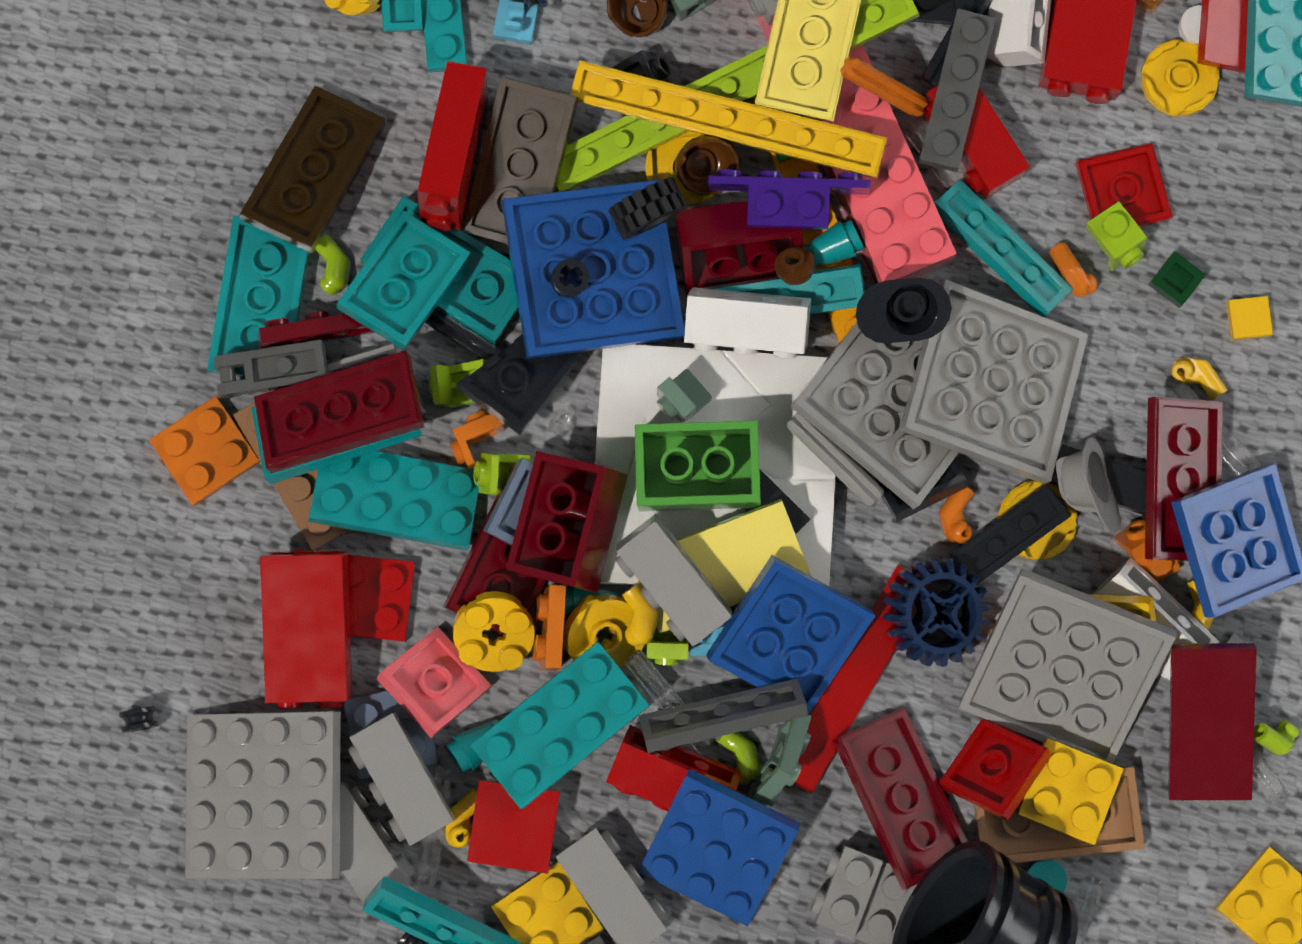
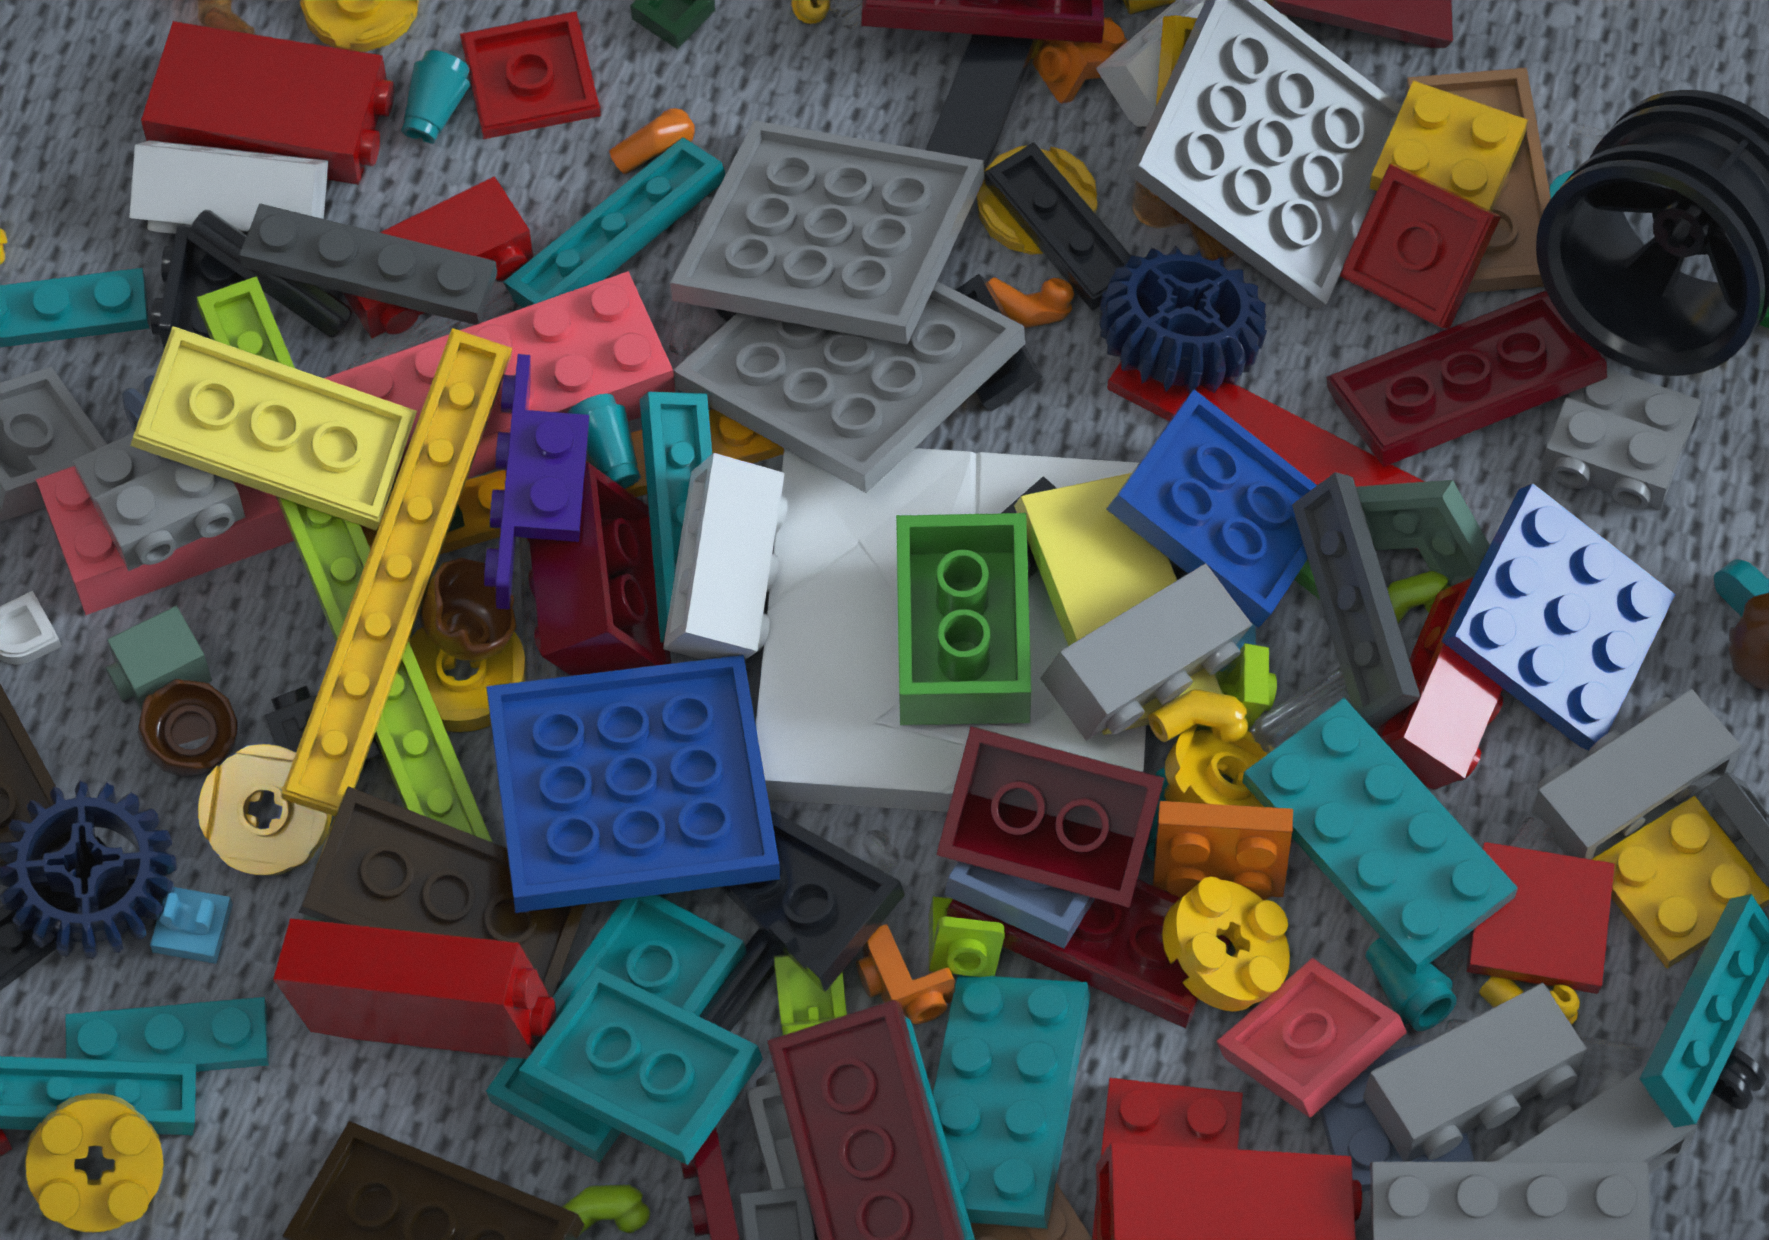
camera: 85 degrees left, 20 degrees down
(569, 265) = (651, 818): black bush -> none
(571, 41) = (235, 833): none -> yellow plate
(647, 208) = (544, 675): black tyre -> none
(682, 396) = (849, 648): sand green bracket -> none
(796, 273) = (654, 488): reddish brown plate -> none
(836, 460) = (947, 444): light grey axle -> none
(883, 86) = (361, 349): orange axle -> none
(903, 310) = (721, 322): black piece -> none
(1086, 484) = (987, 119): light grey piece -> none
(1101, 128) = (434, 94): none -> teal cone
(1118, 236) = (604, 74): lime bracket -> none

